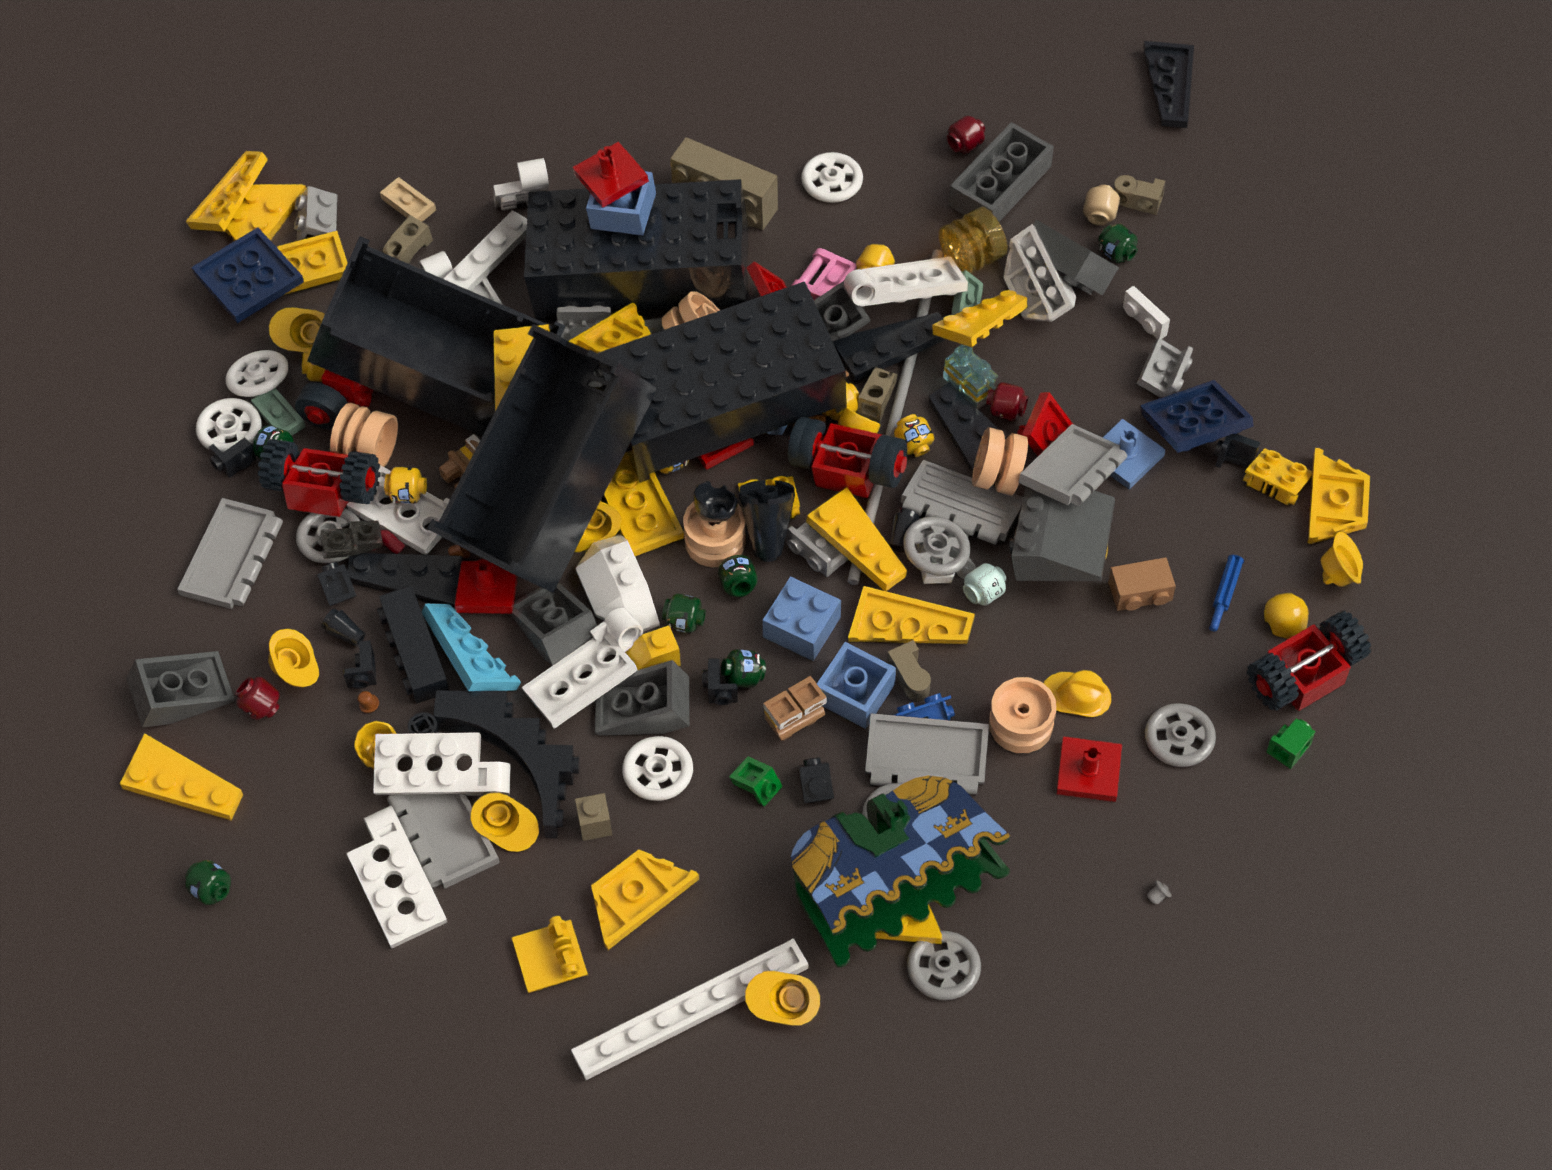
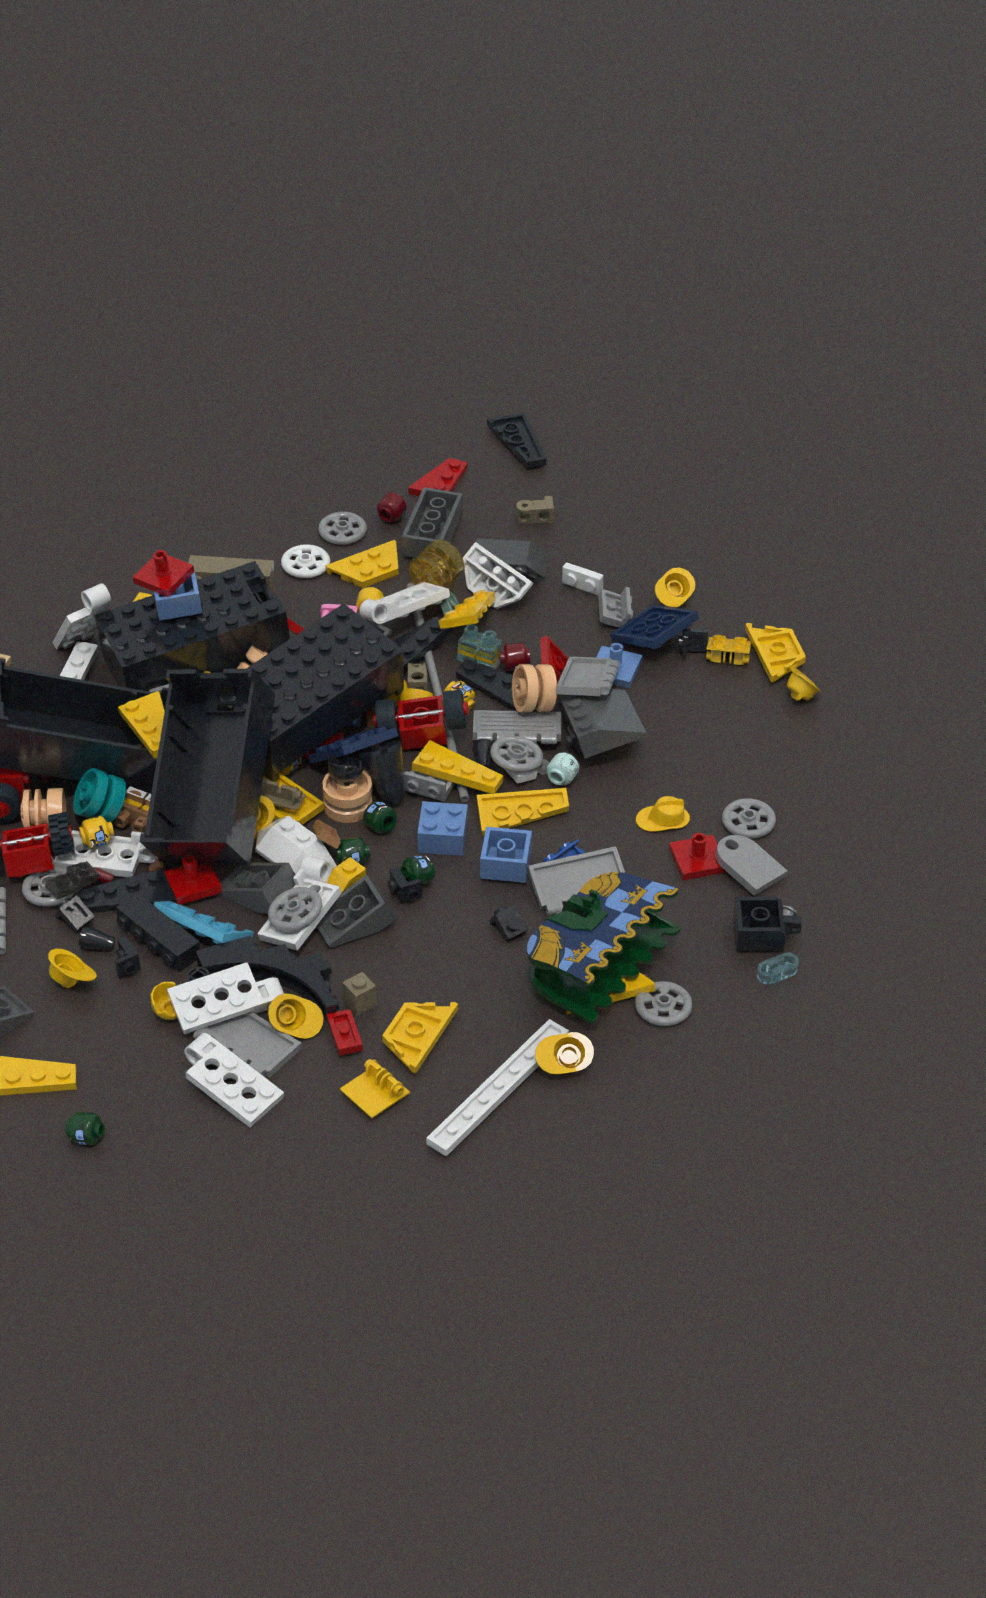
camera: 25 degrees left, 15 degrees down
(257, 698) = (56, 1000): dark red head -> none
(368, 702) = (141, 980): dark orange piece -> none
(430, 438) = (99, 795): none -> teal wheel
(553, 862) = (344, 1032): none -> red plate
(572, 674) = (295, 909): none -> light grey plate
(634, 507) = (284, 797): none -> dark tan hinge
(647, 748) = (388, 952): white plate -> none
(661, 580) = (326, 833): none -> medium nougat tile
(746, 468) = (352, 744): none -> dark blue plate
(757, 779) = (466, 933): green bracket -> none
(795, 709) = (471, 880): medium nougat hips -> none
(888, 158) = (342, 528): none -> light grey plate
(903, 207) = (368, 566): none -> yellow wing
(909, 674) = (543, 840): dark tan leg -> none
(1022, 715) = (636, 835): light nougat wheel -> none
(1047, 111) = (443, 477): none -> red wing
(1101, 204) = (513, 523): tan head -> none
(1106, 969) = (777, 969): none -> clear light blue beam
(1118, 243) = (541, 539): dark green head -> none
(1129, 905) = (761, 924): none -> black hinge
(1141, 584) = (672, 737): medium nougat brick -> none
(1144, 805) = (749, 863): none -> light grey tile
(1226, 589) = (731, 724): blue axle -> none
(1250, 366) = (675, 587): none -> yellow piece
(1286, 615) = (781, 726): yellow hair -> none
(1291, 742) = (827, 797): green brick -> none
(1309, 663) = (816, 743): brick -> none

